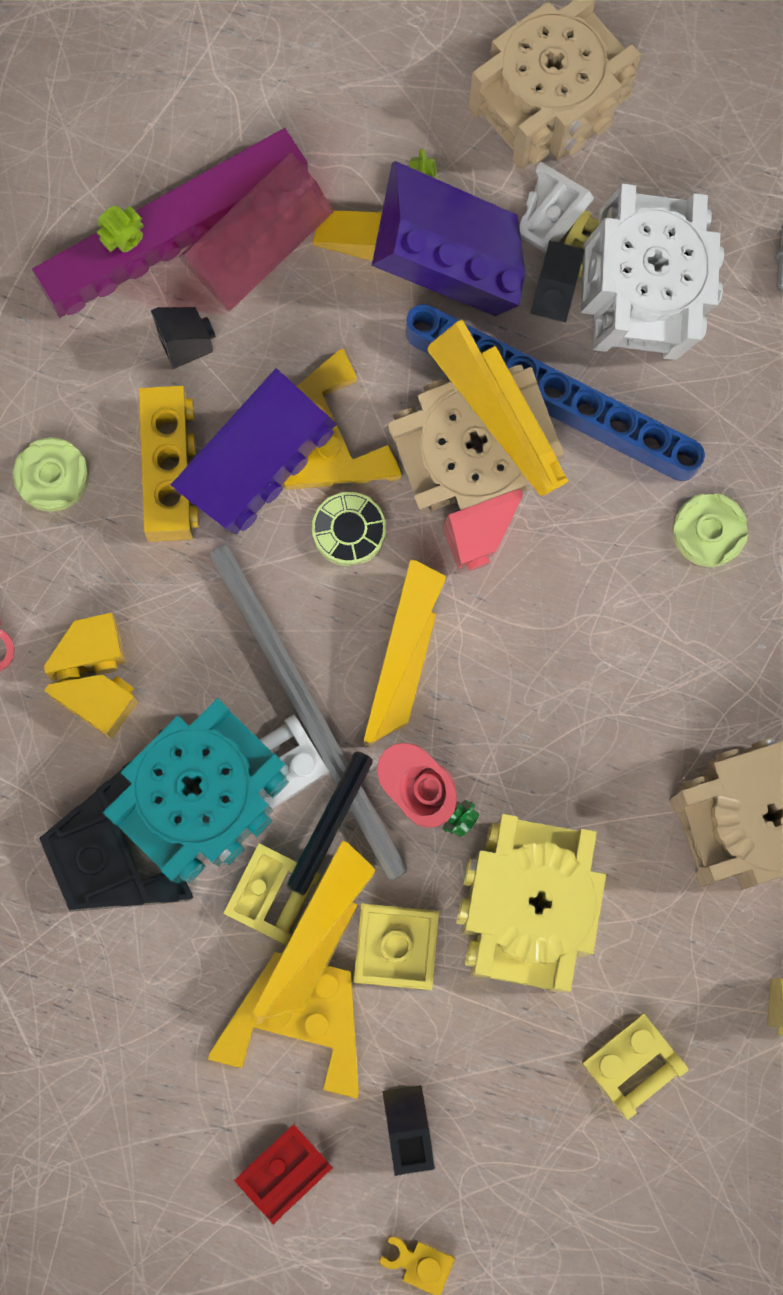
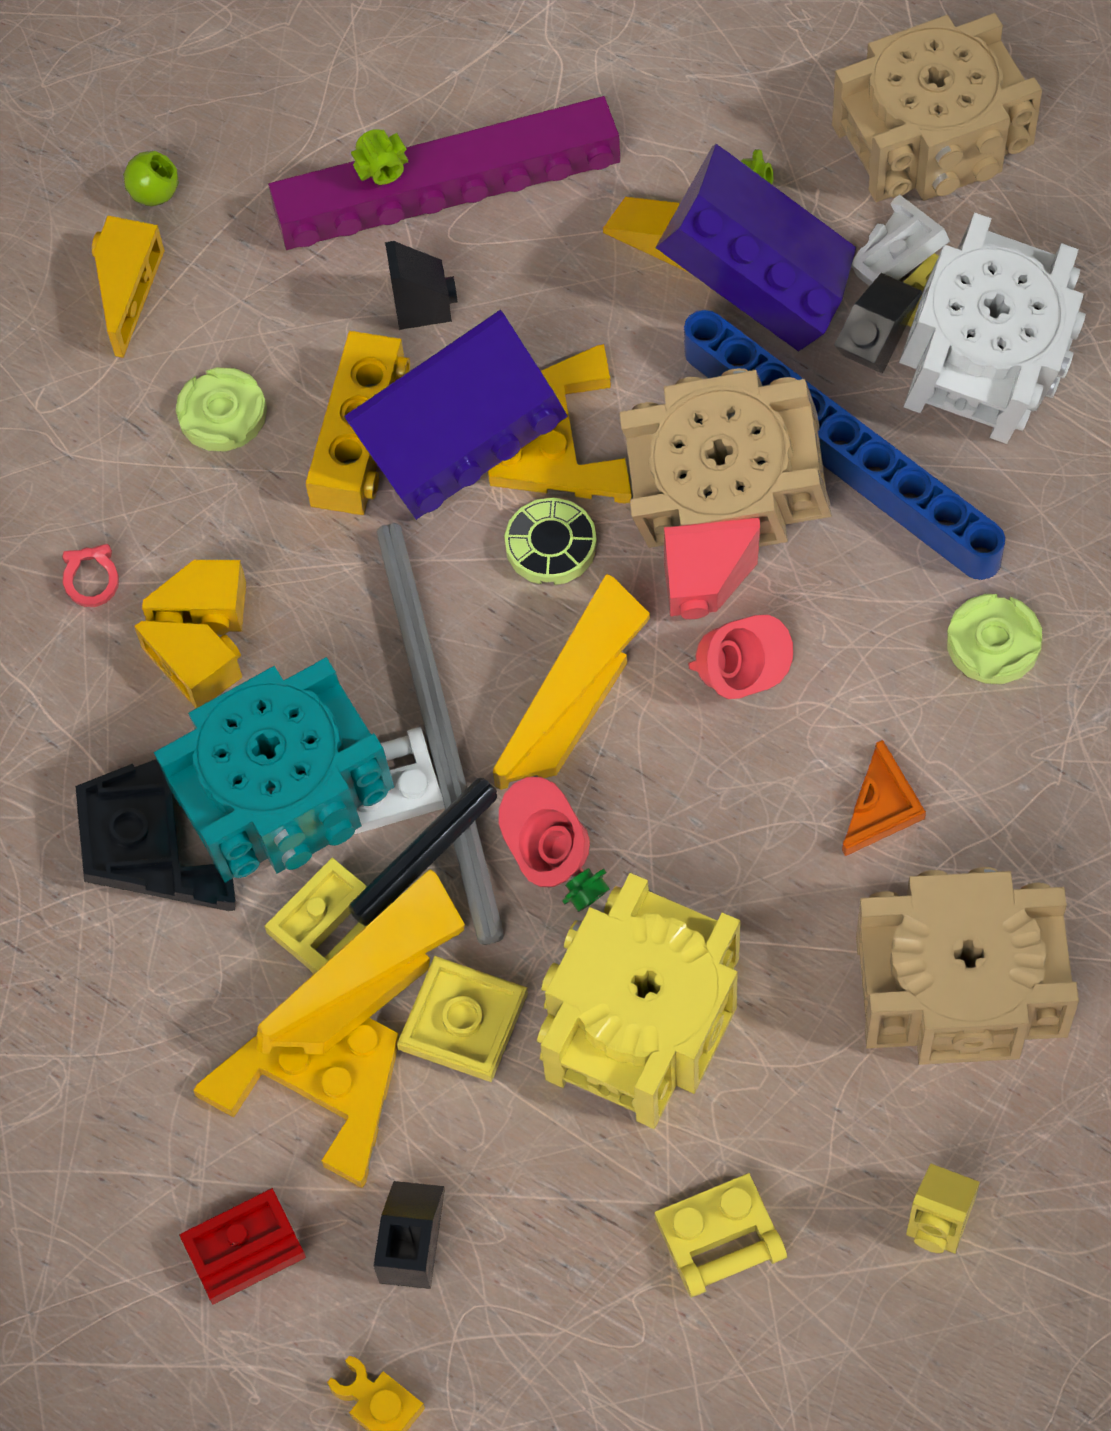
camera: 25 degrees right, 15 degrees down
(258, 232) = (538, 196): clear pink slope -> none
(499, 404) = (754, 408): yellow wedge -> none
(528, 596) = (744, 656): none -> coral piece
(662, 686) = (884, 803): none -> orange tile

